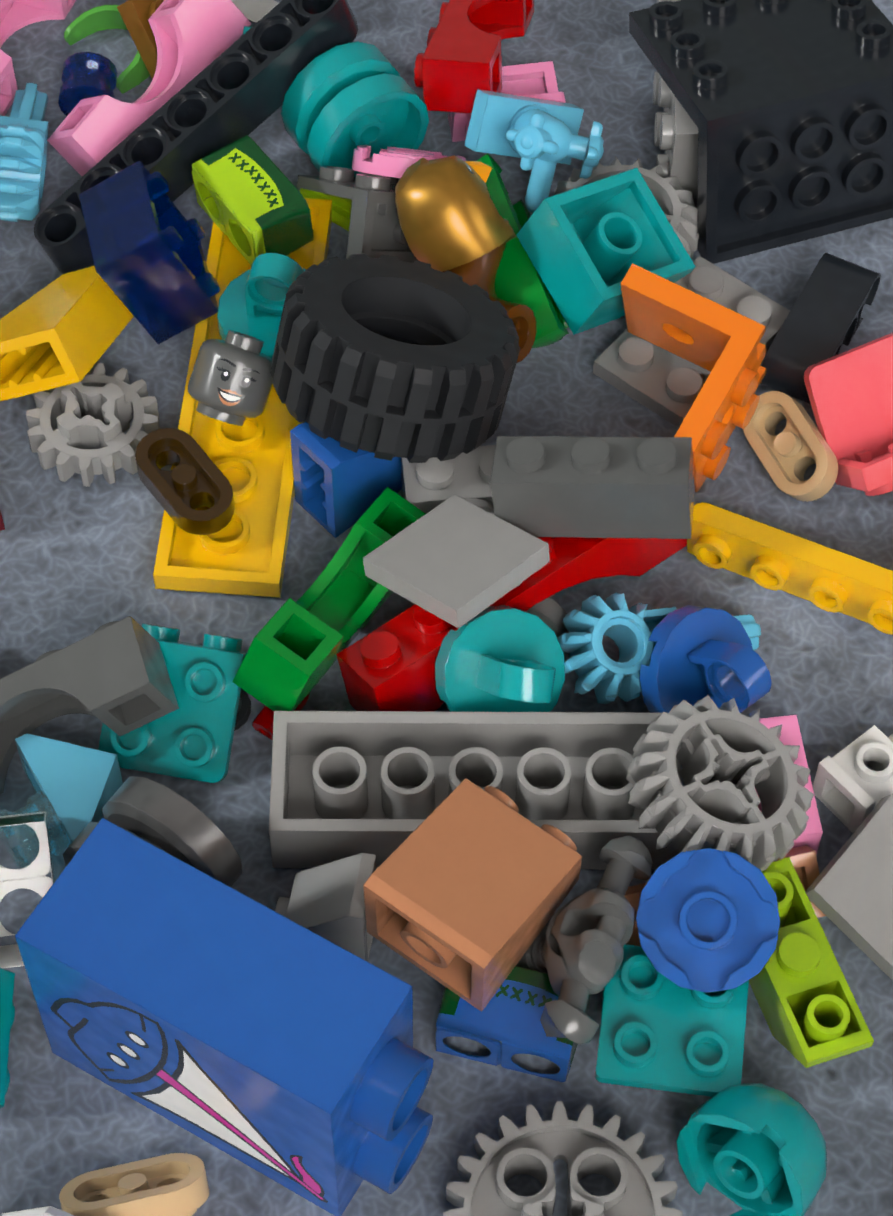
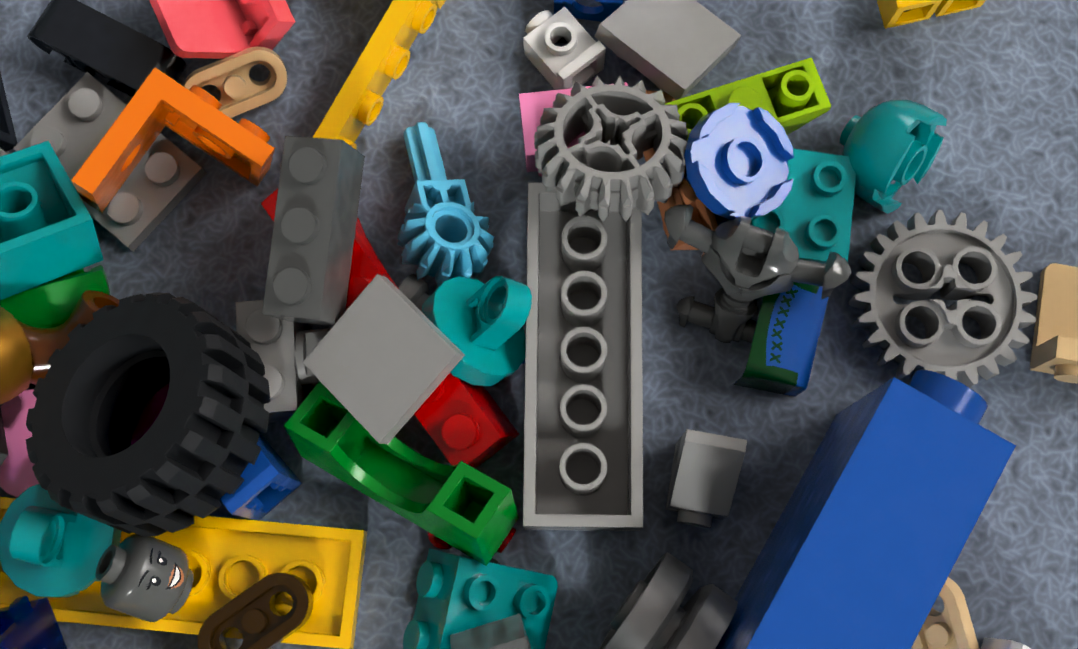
camera: 85 degrees left, 20 degrees up
(470, 890) = (722, 346): nougat slope -> none
(699, 656) = (478, 160): blue tile -> none

